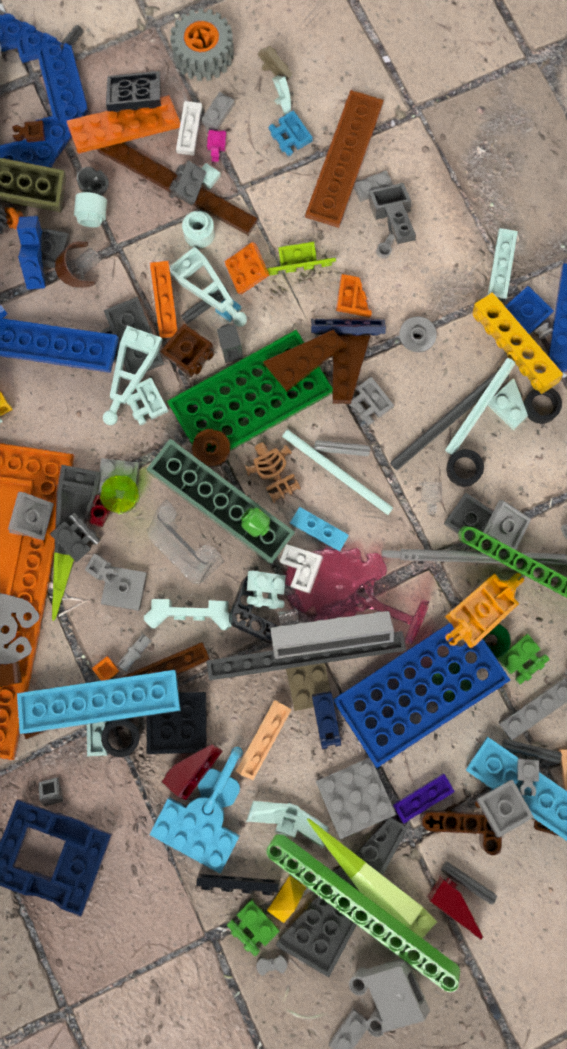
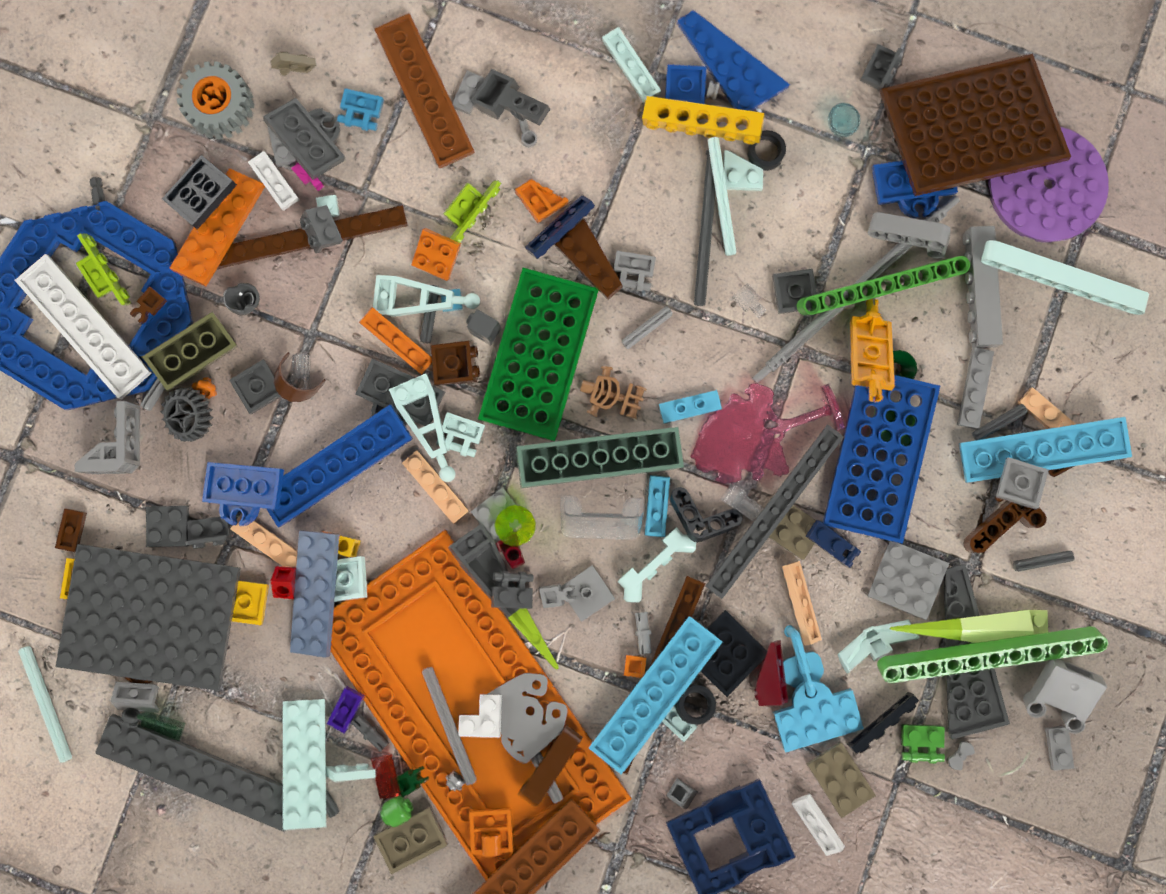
camera: 45 degrees left, 5 degrees up
(21, 84) = (97, 272): none -> lime bracket
(30, 252) = (251, 402): blue arch -> none
(30, 516) = (464, 608): light grey bracket -> none
(90, 209) = (263, 323): light aqua piece -> none
(94, 422) = (435, 487): none -> light nougat plate
(120, 910) = (818, 825): none -> white plate
(169, 894) = (841, 779): none -> dark tan plate
(202, 237) = (358, 250): light aqua piece -> none
(211, 437) = (545, 412): reddish brown plate -> none
(230, 575) = (657, 506): none -> medium azure tile
(238, 118) = (307, 136): none -> dark grey plate
(255, 522) = (644, 448): bright green head -> none
(265, 583) = (693, 484): light aqua plate -> none
(283, 91) = (322, 80): light aqua slope -> none
(287, 899) = (930, 699): yellow slope -> none
(301, 360) = (551, 291): reddish brown wing -> none
(306, 565) = (708, 443): white plate -> none
(332, 634) = (780, 477): light grey brick -> none
(337, 472) = (661, 349): light aqua piece -> none
(421, 327) = (620, 173): light grey dish -> none
(423, 798) = (955, 532): dark purple plate -> none
(451, 901) = (1045, 586): dark red slope -> none
(475, 457) = (758, 240): black tyre -> none
(507, 524) = (827, 270): light grey plate -> none
(521, 653) = (925, 357): bright green plate -> none
(528, 772) = (1014, 441): light grey plate -> none

